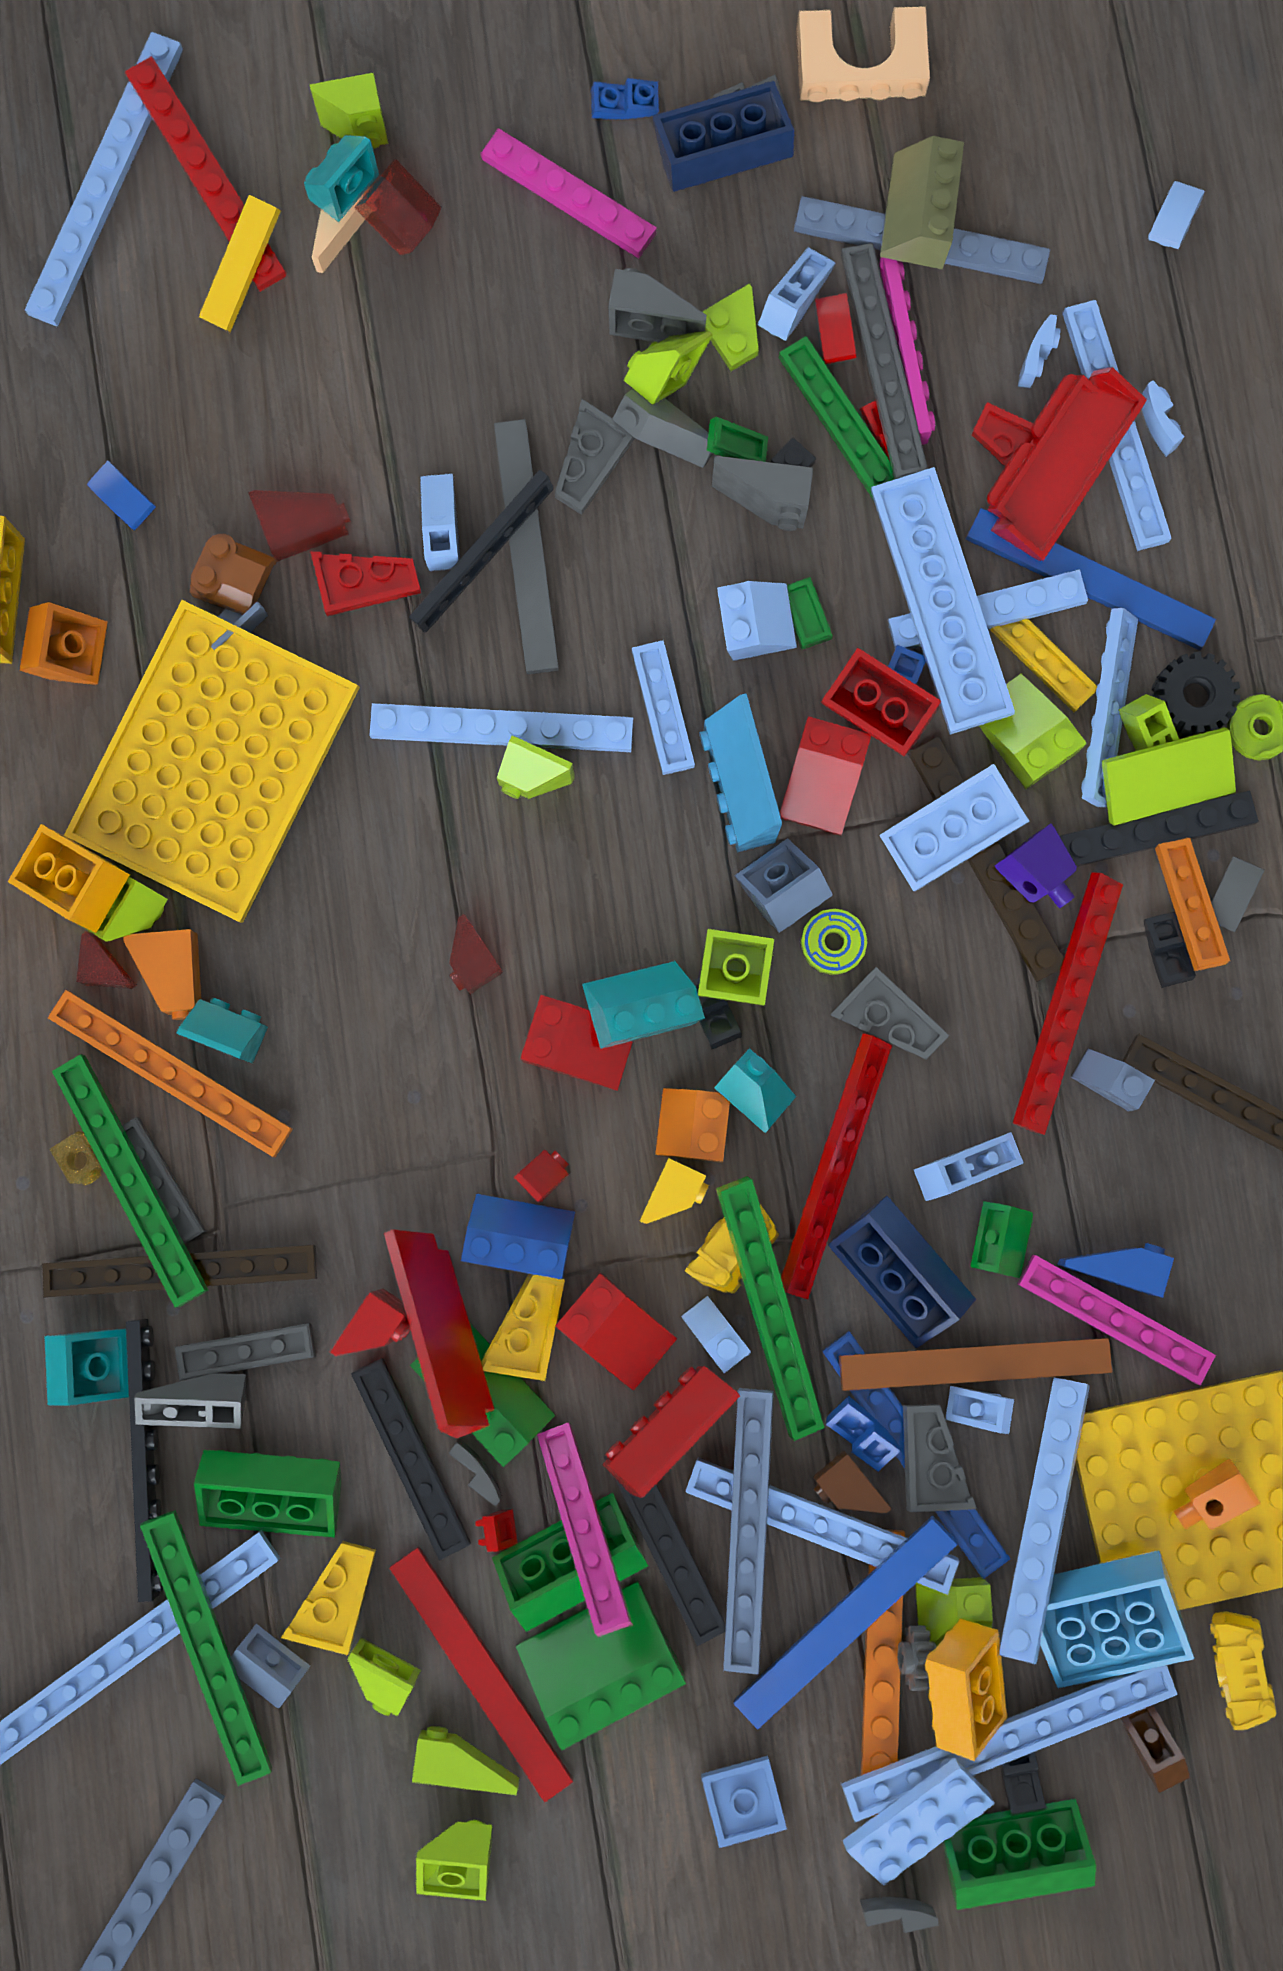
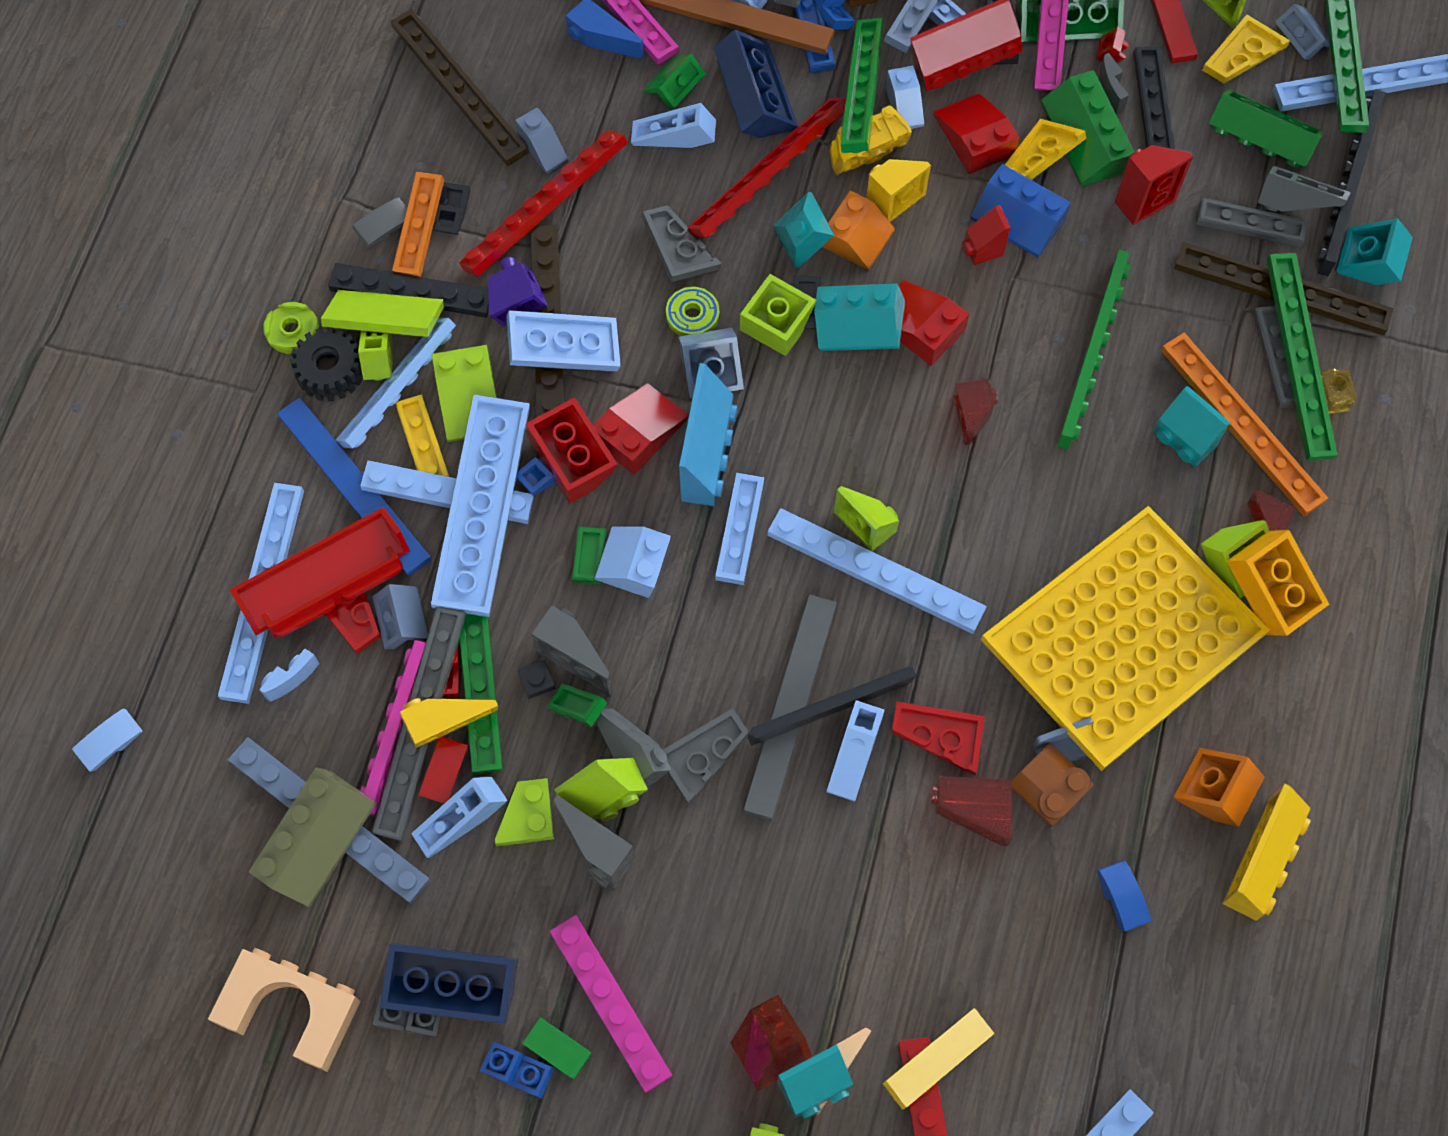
camera: 155 degrees left, 15 degrees down
(169, 968) = (1217, 494): orange slope -> none
(367, 1107) = (1092, 359): none -> green plate
(440, 1332) = (1105, 157): red slope -> none
(597, 133) = (557, 1048): none -> green tile
(861, 361) = (438, 717): none -> yellow slope
(962, 462) = (399, 615): none -> sand blue panel
(1163, 430) = (226, 580): light blue slope -> none

